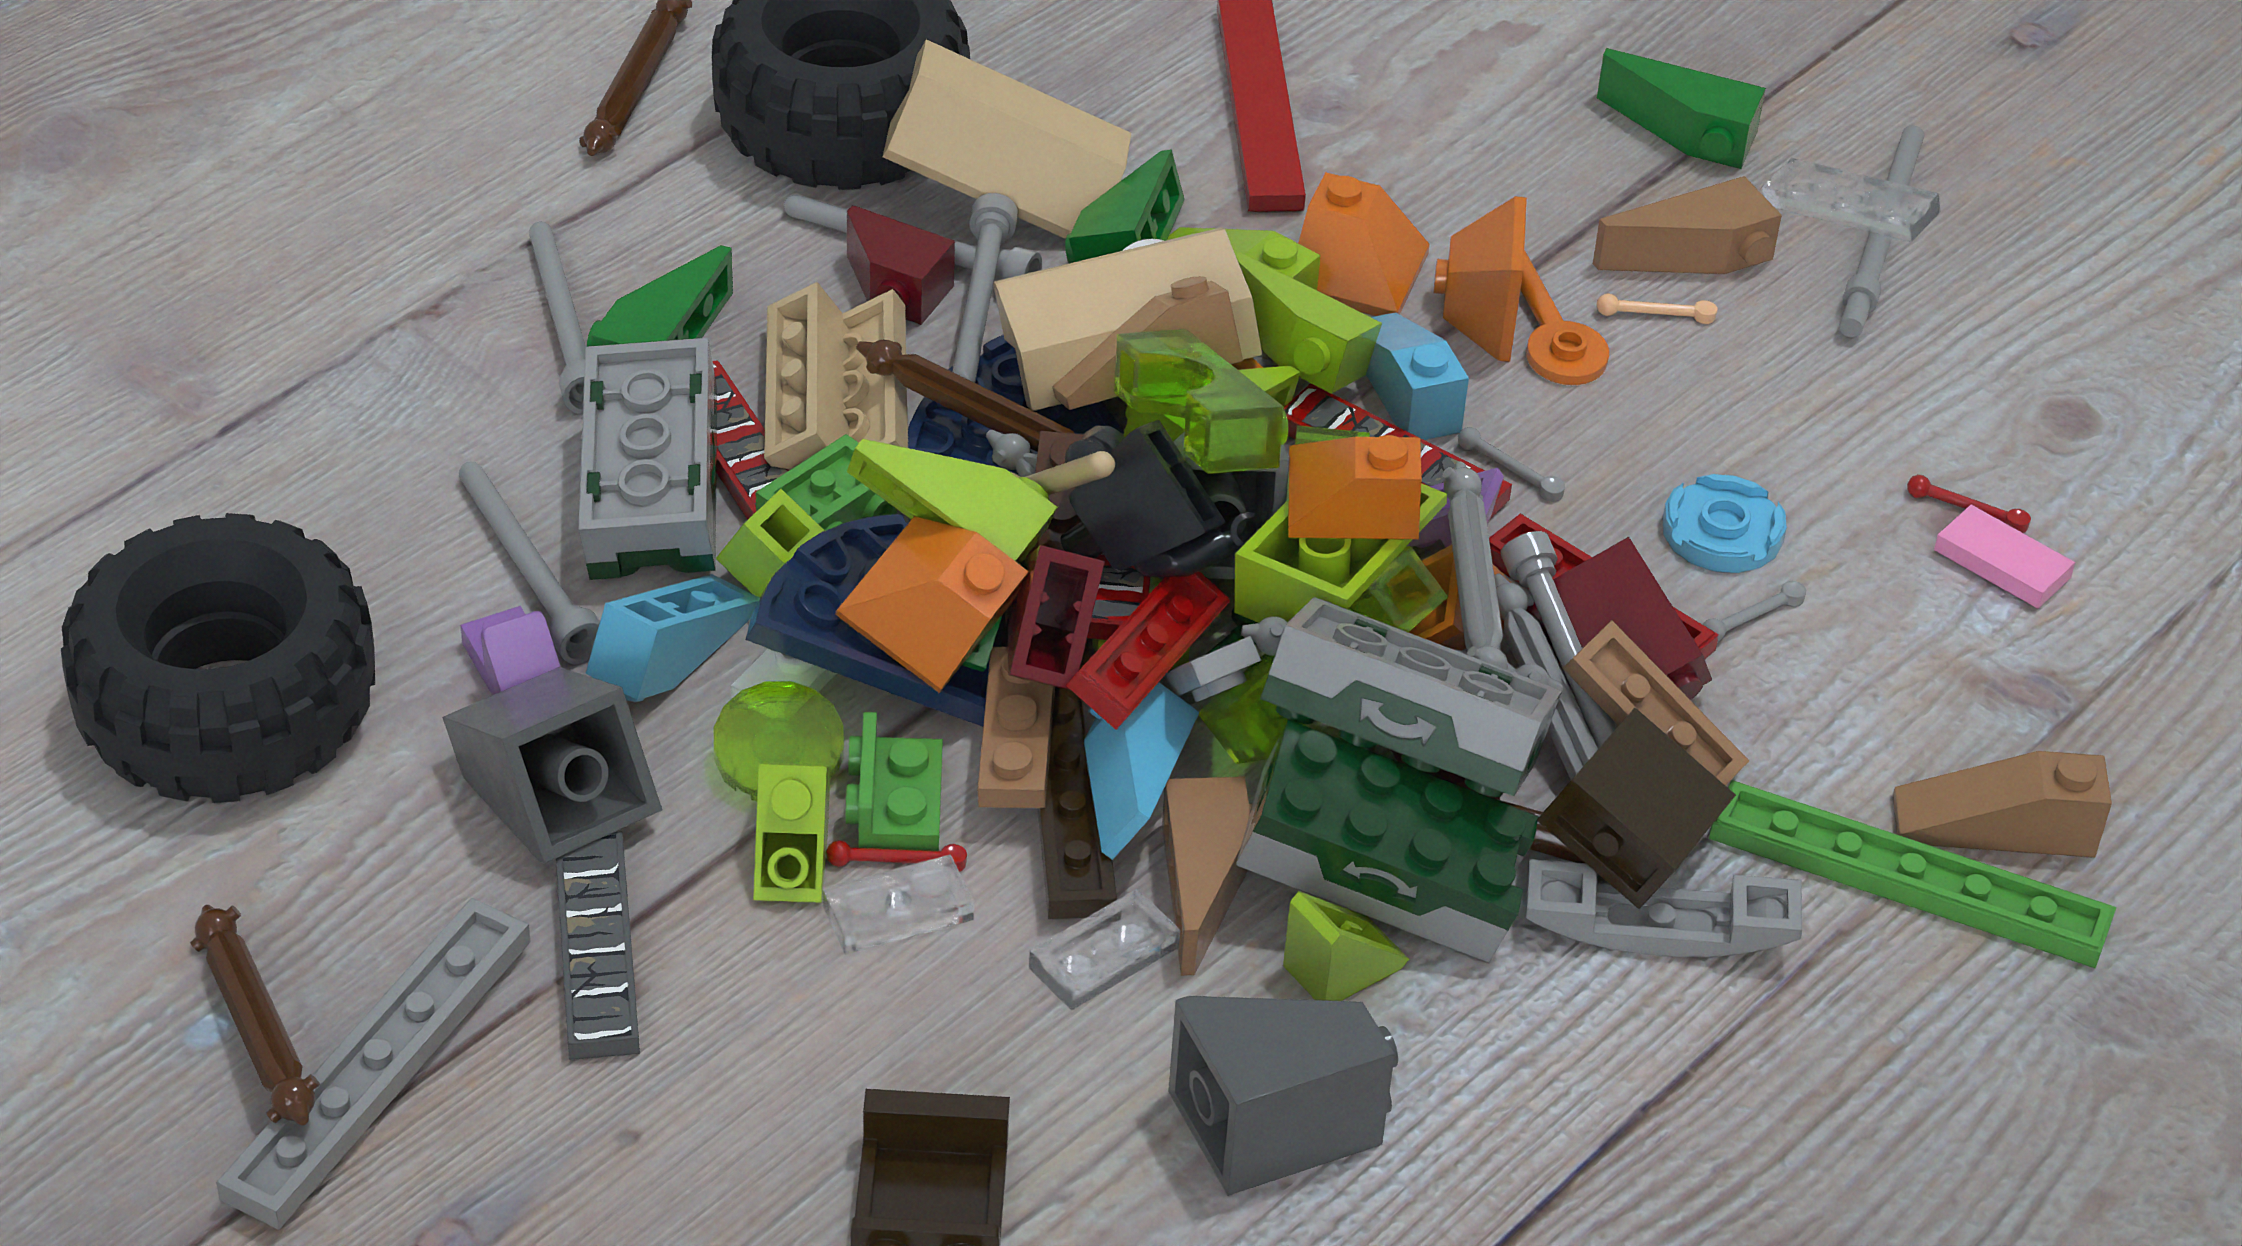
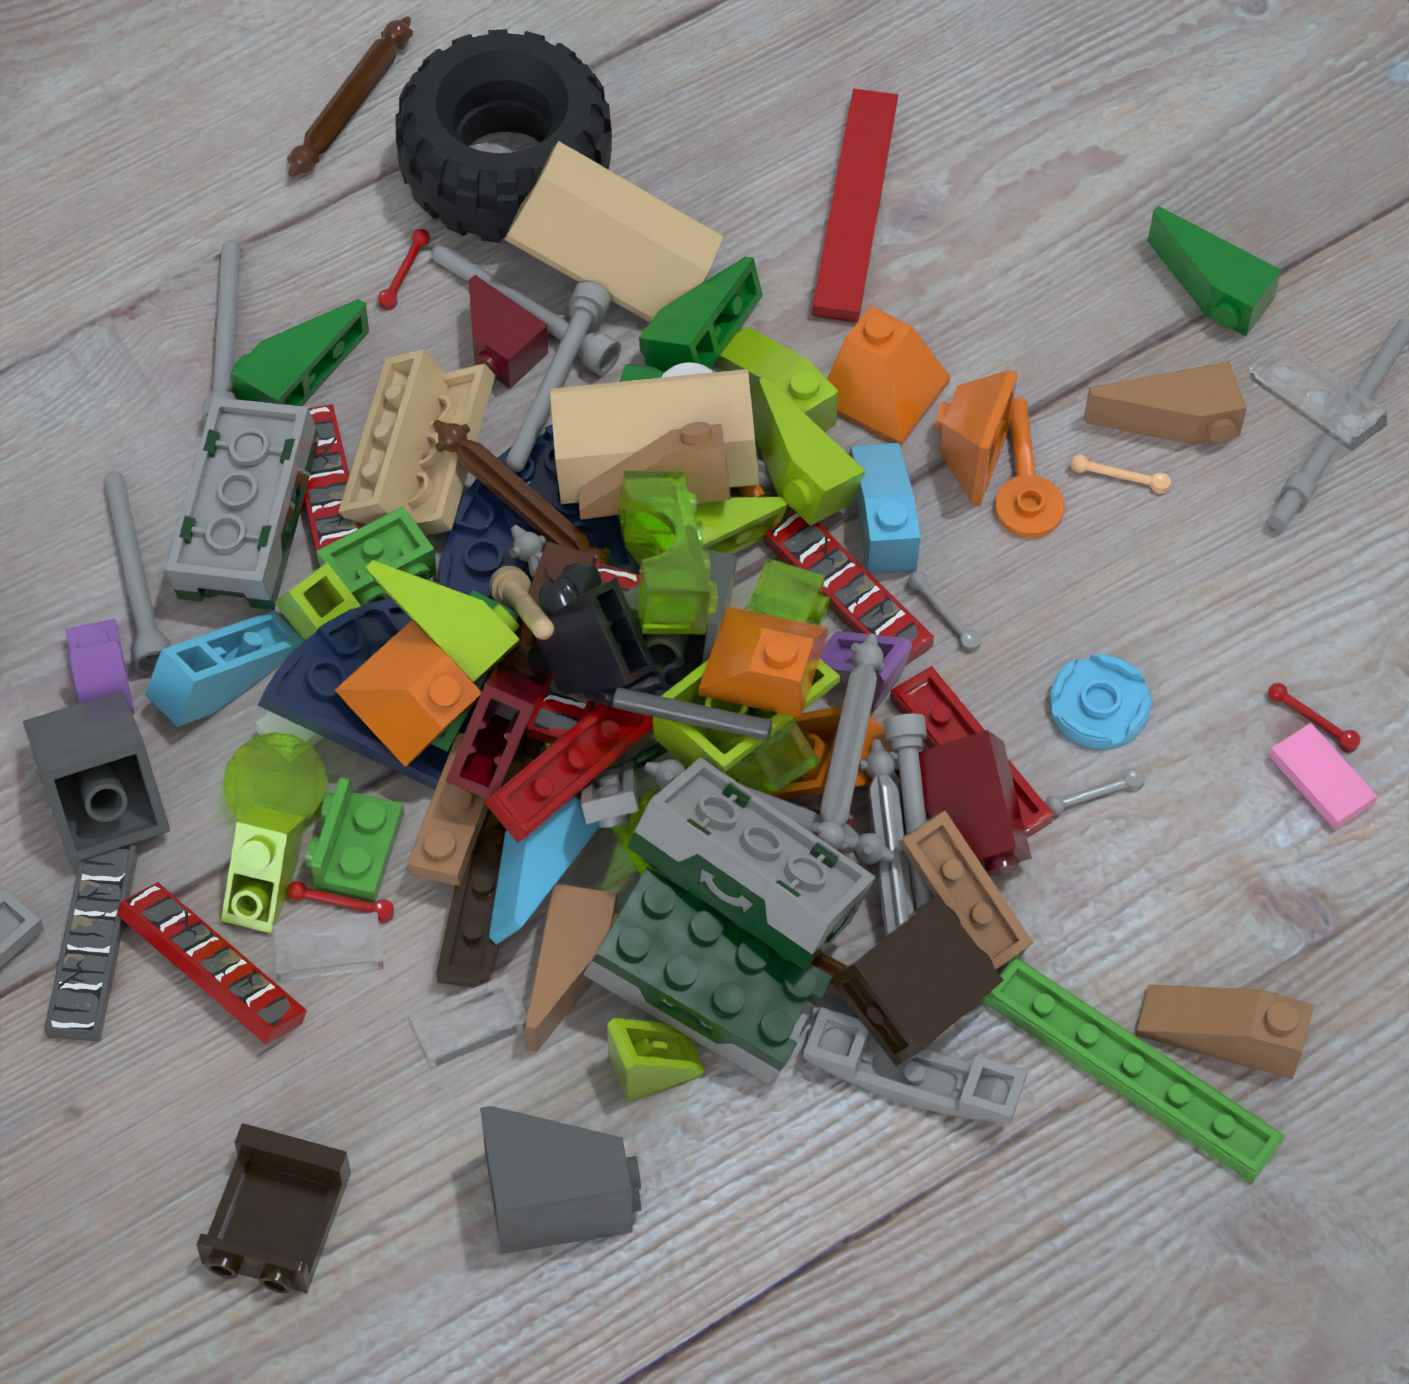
camera: 15 degrees right, 15 degrees up
(746, 255) = (388, 298): none -> red hinge
(760, 939) = (211, 962): none -> red tile
(1292, 551) = (692, 714): none -> dark grey bar

